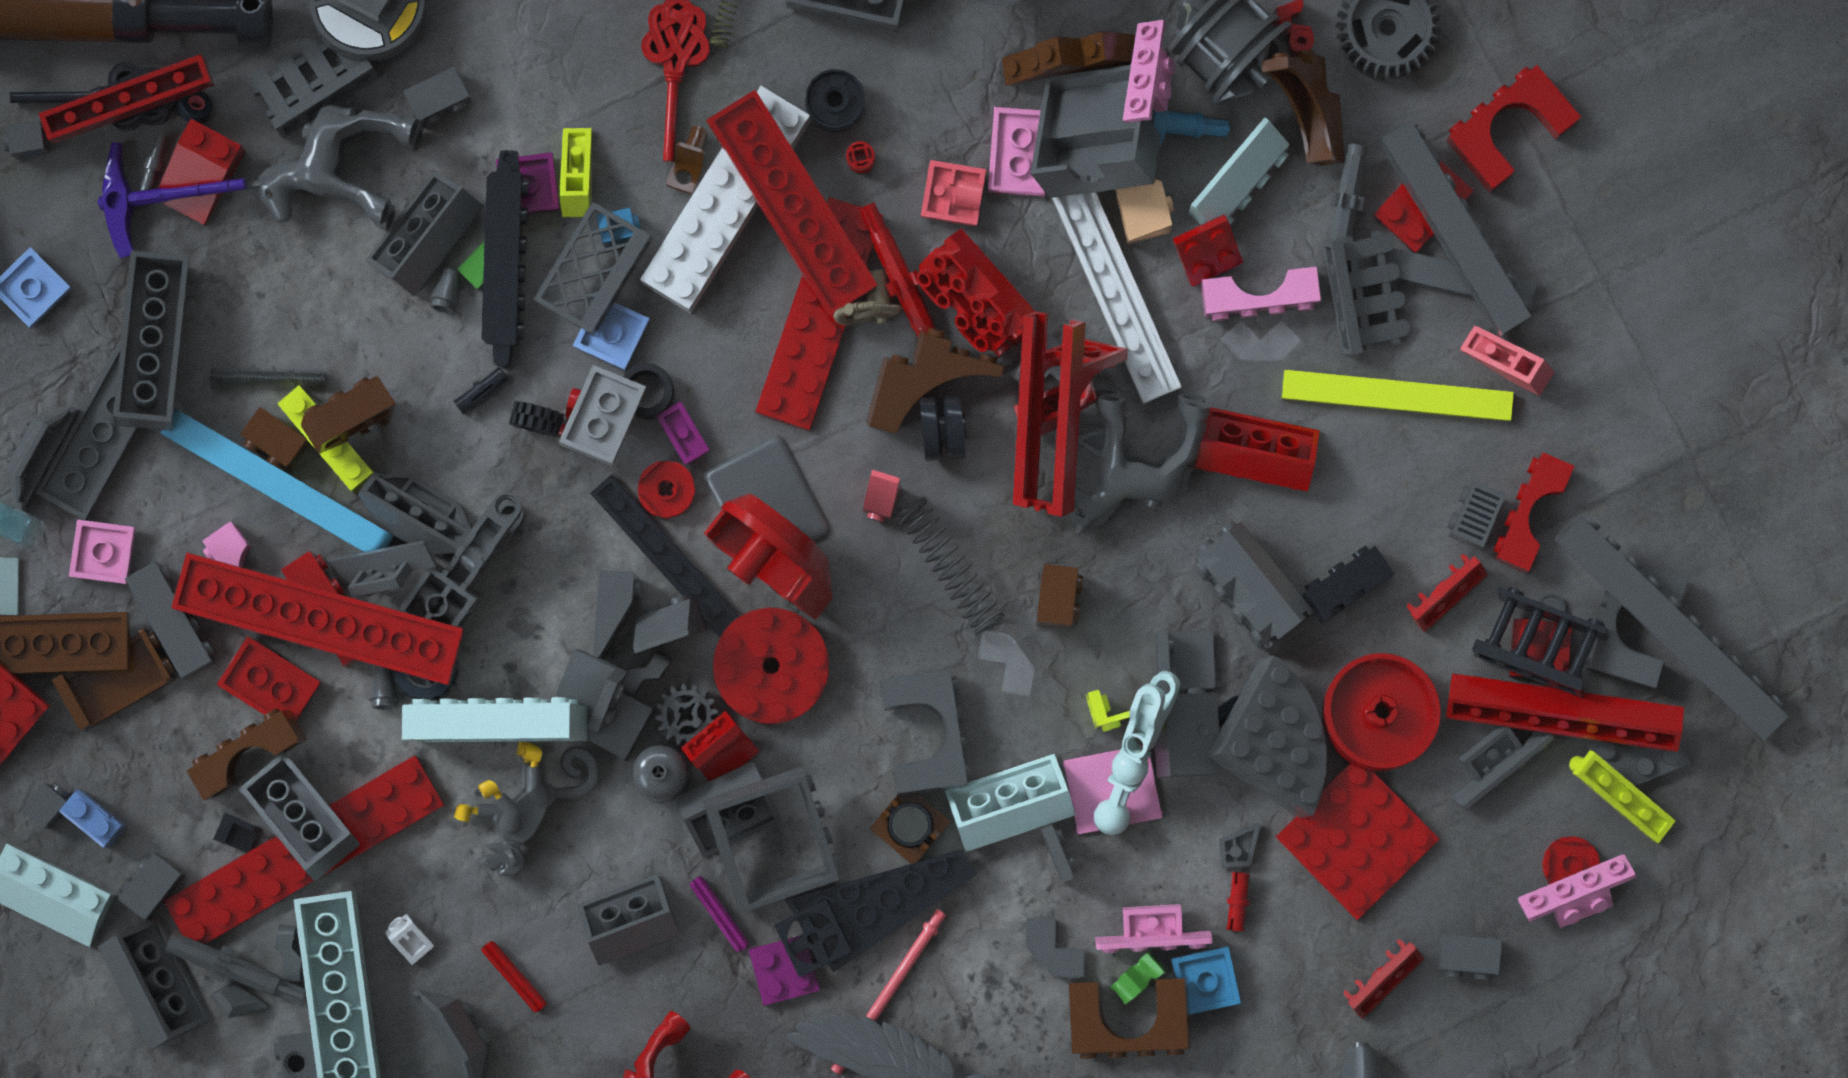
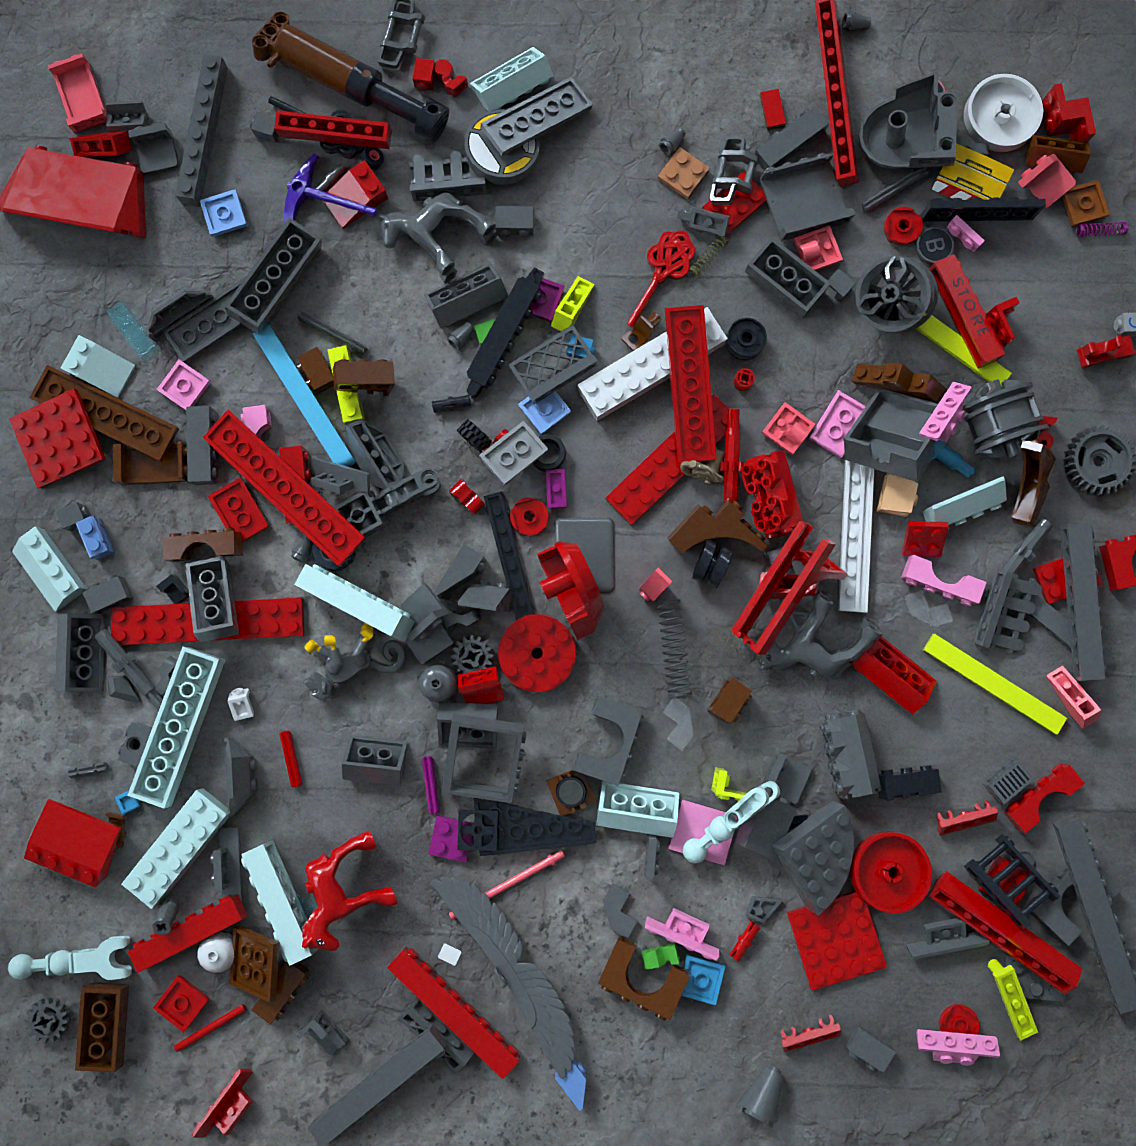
camera: 30 degrees right, 0 degrees up
(568, 505) = (466, 496): none -> red leg

